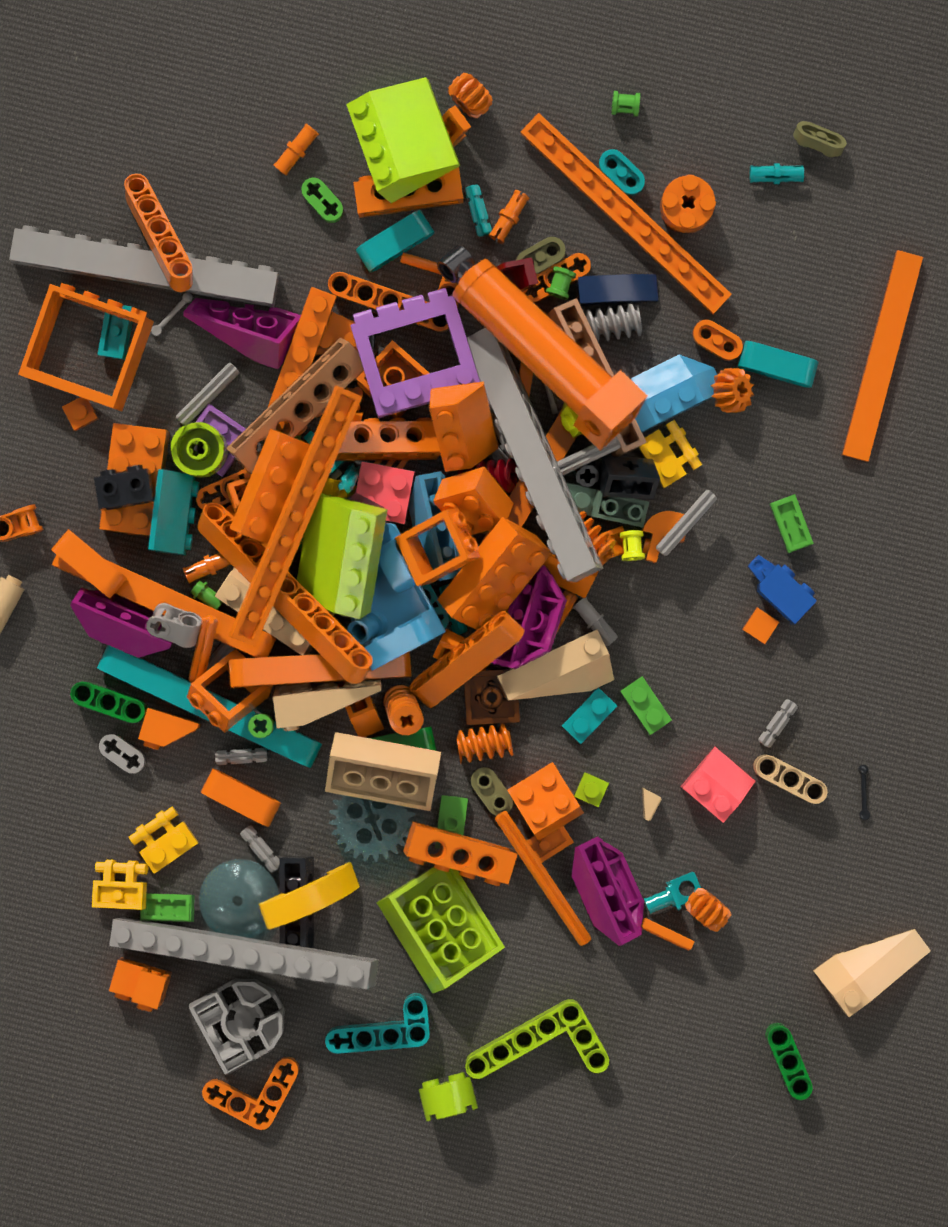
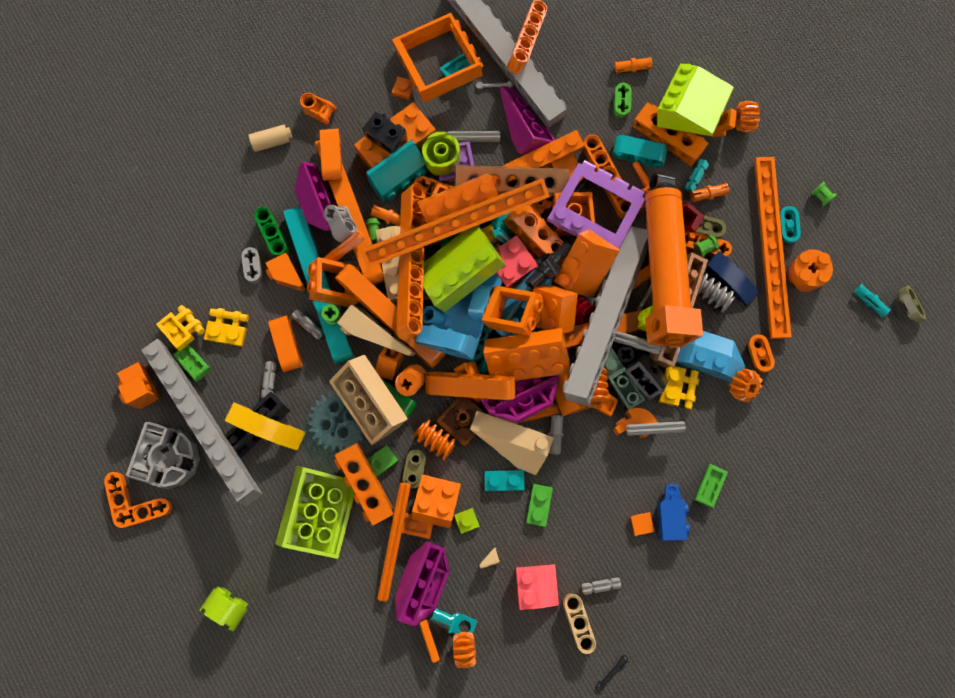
camera: 50 degrees right, 10 degrees down
(234, 879) = (243, 387): clear light blue dish -> none
(376, 1030) = (226, 534): teal beam -> none
(427, 464) = (548, 266): none -> black pin
(539, 1037) = (305, 626): lime beam -> none
(632, 545) = (614, 413): neon yellow bush -> none
(778, 364) = (782, 396): teal beam -> none
(882, 356) = (842, 446): orange tile -> none

